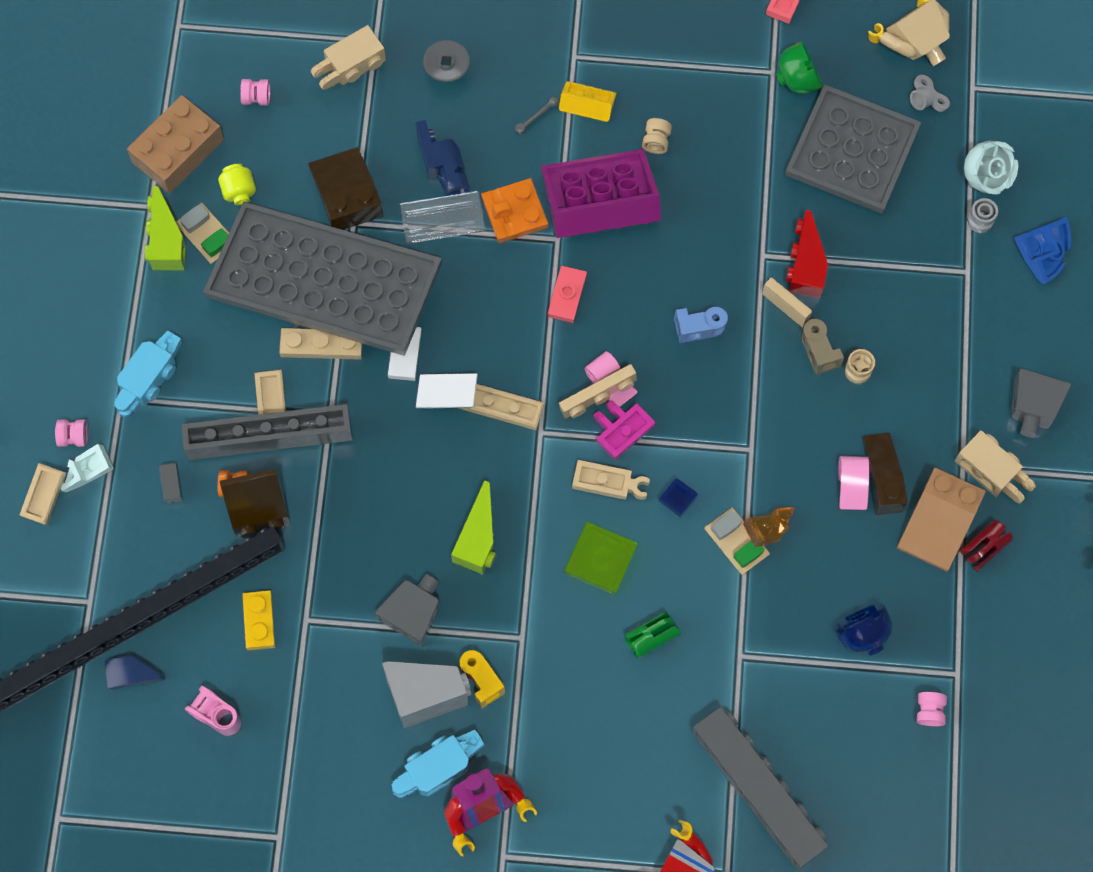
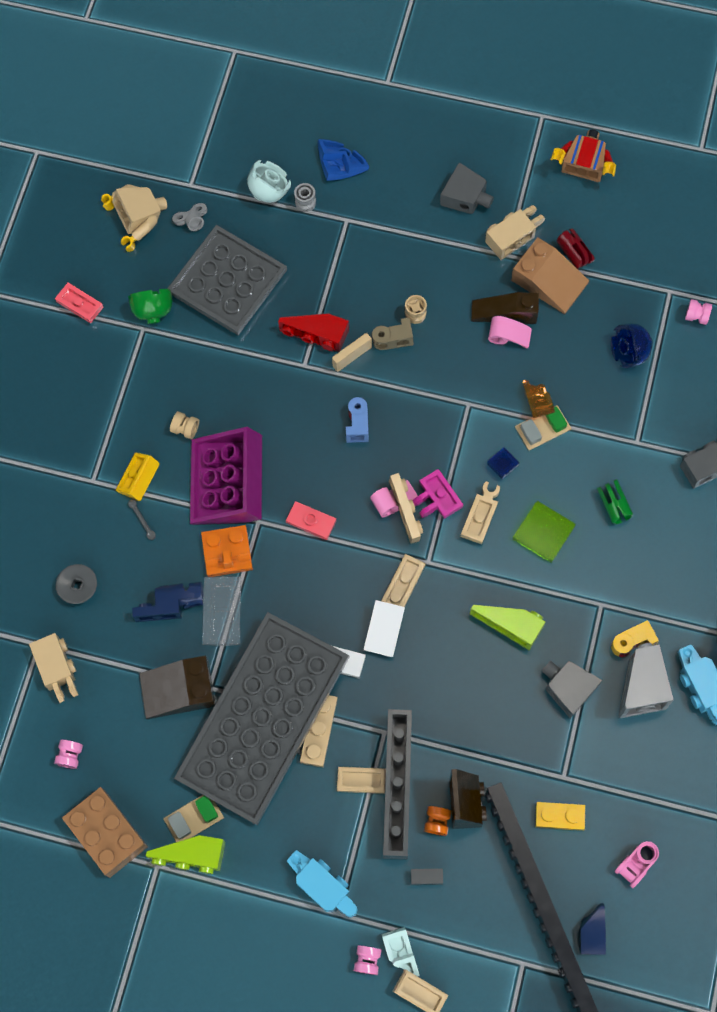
camera: 75 degrees left, 0 degrees up
(237, 184) = (156, 781): neon yellow head -> none

